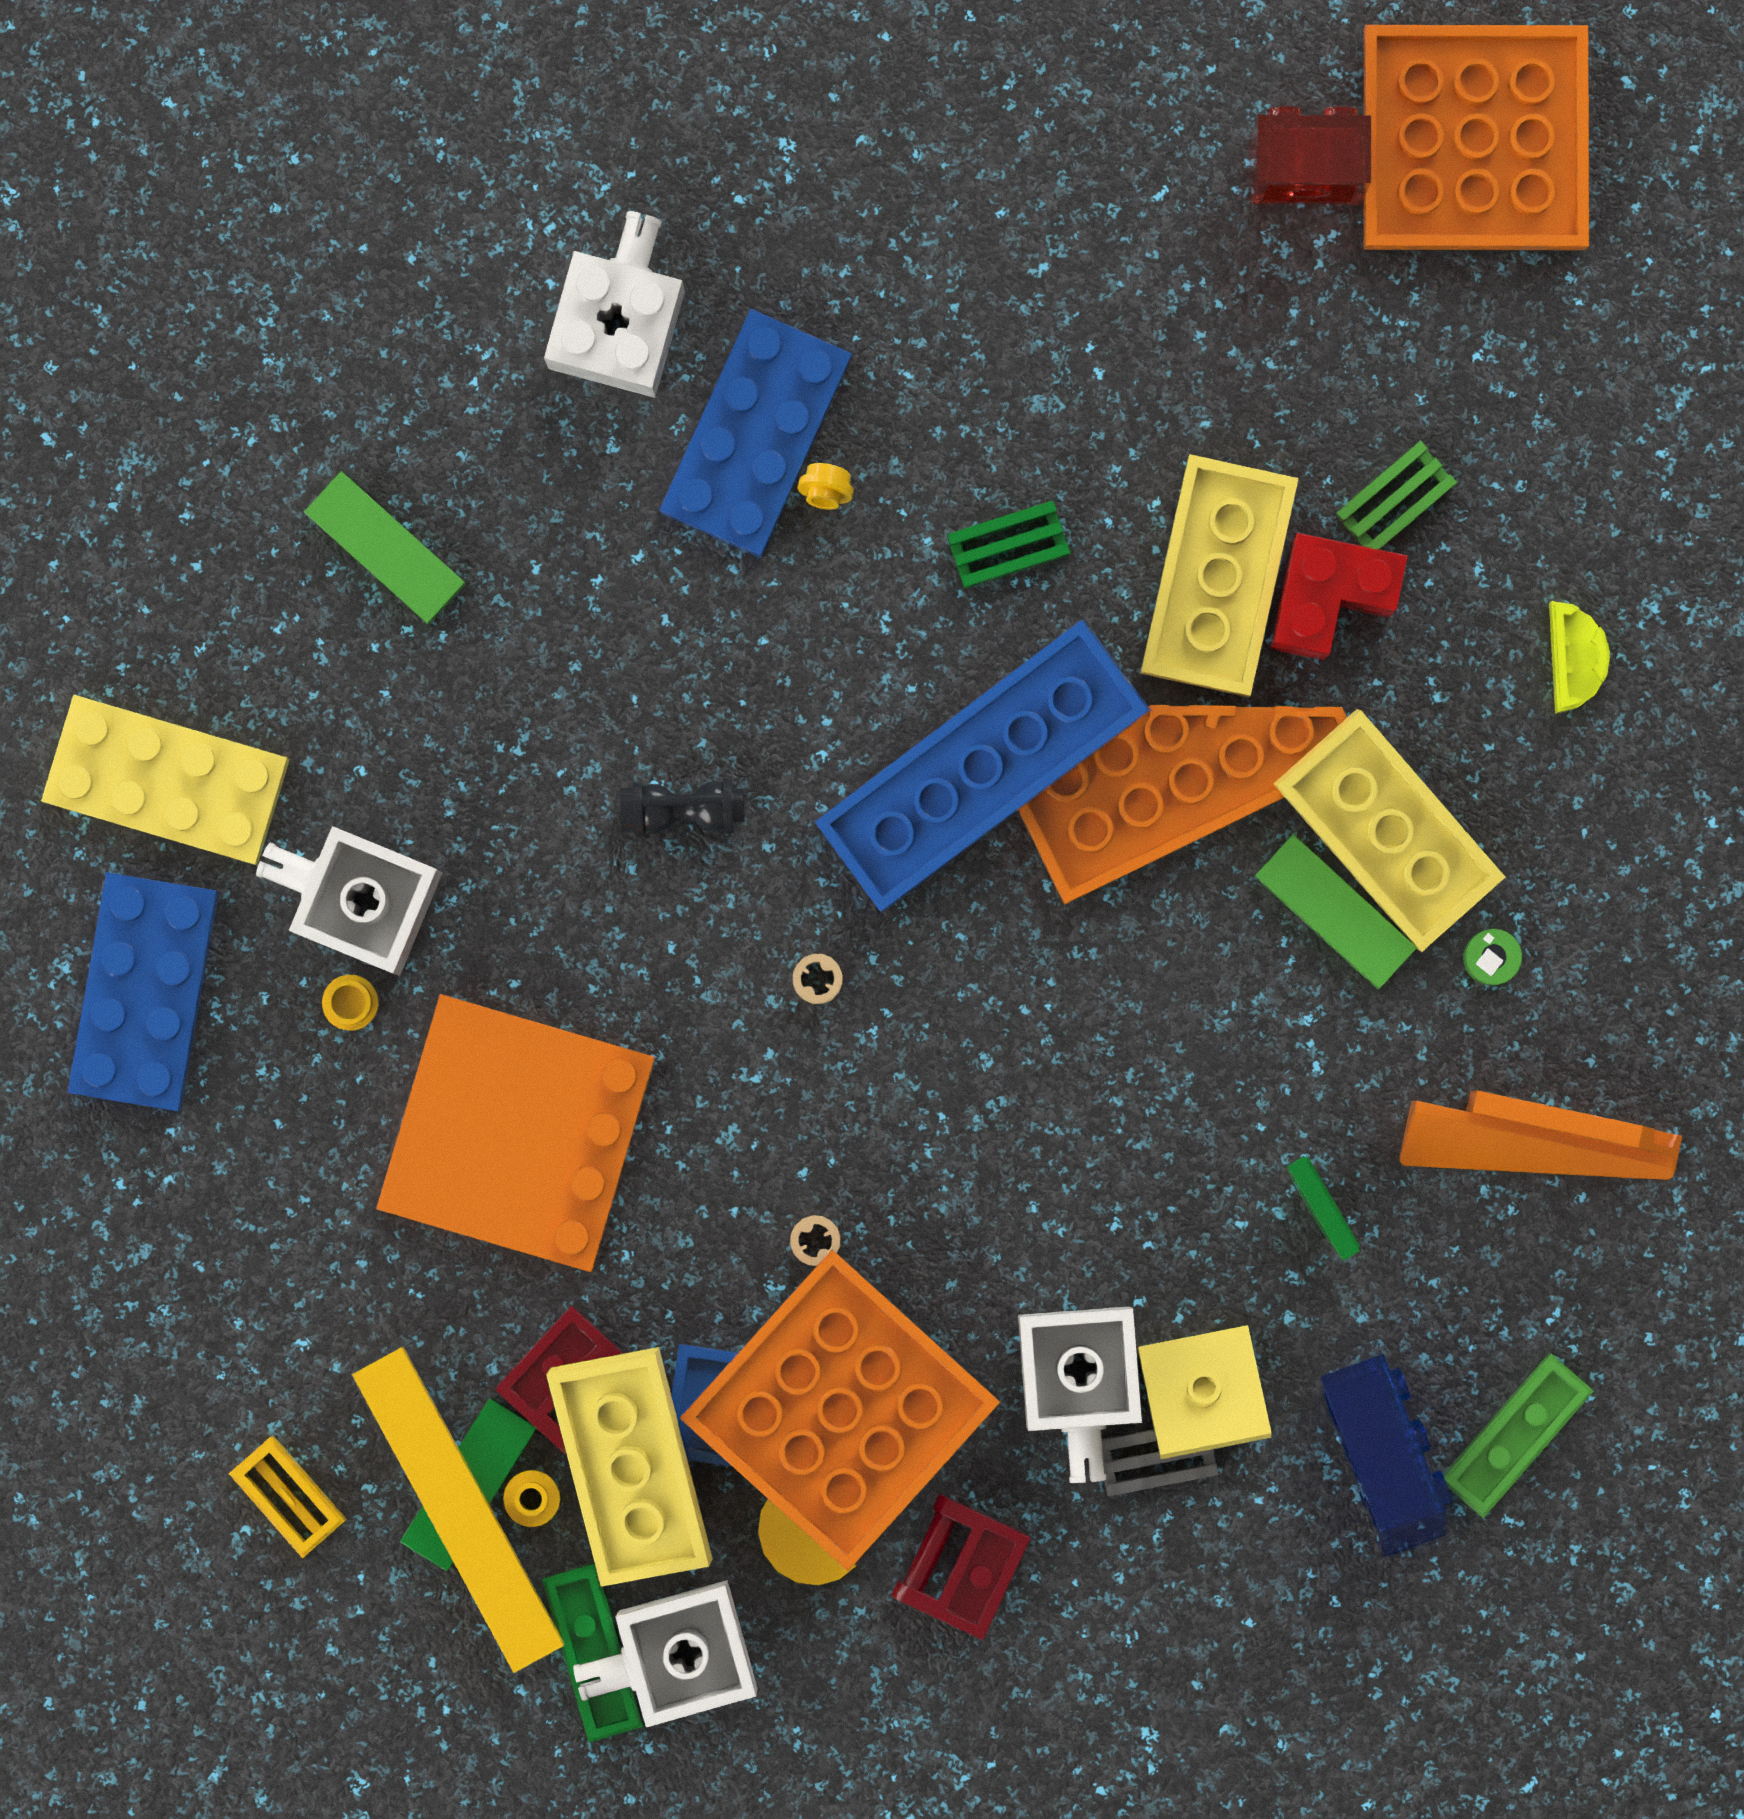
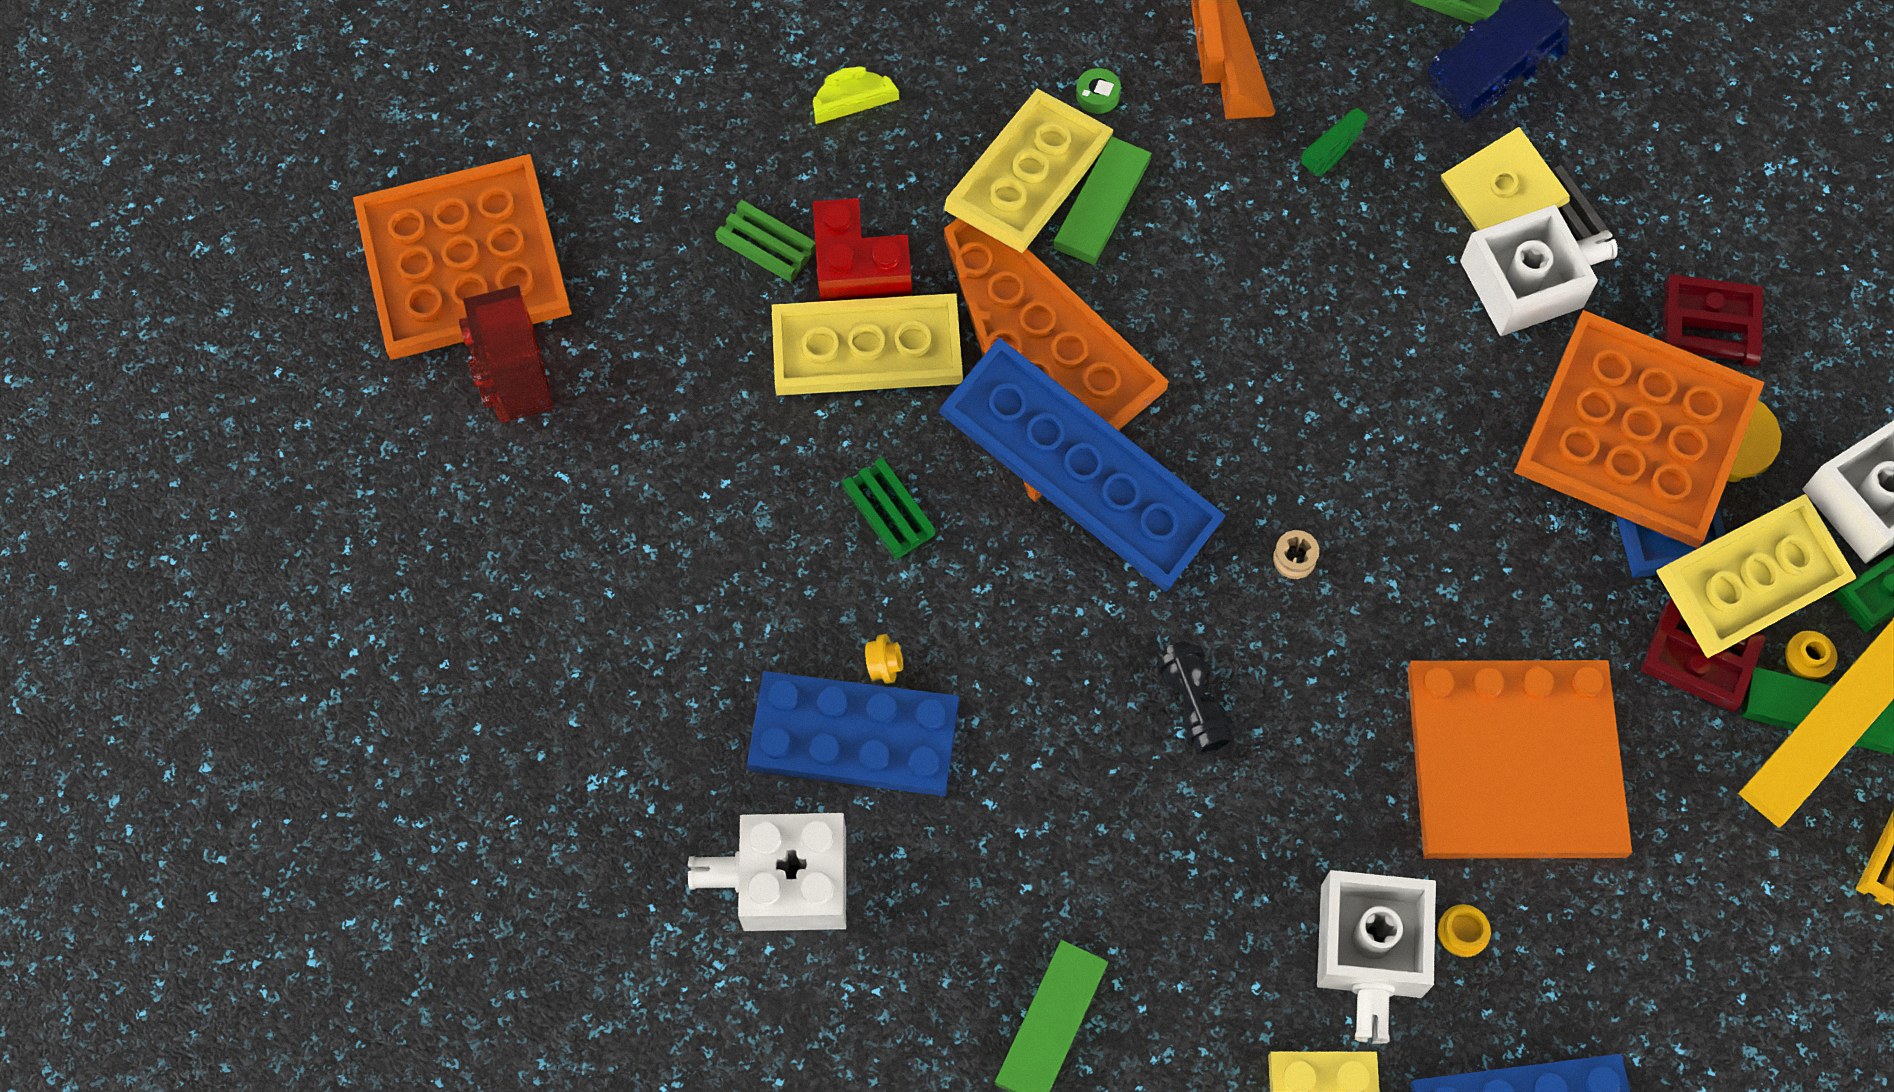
camera: 110 degrees left, 20 degrees down
(807, 1225) = (1516, 488): tan bush -> none

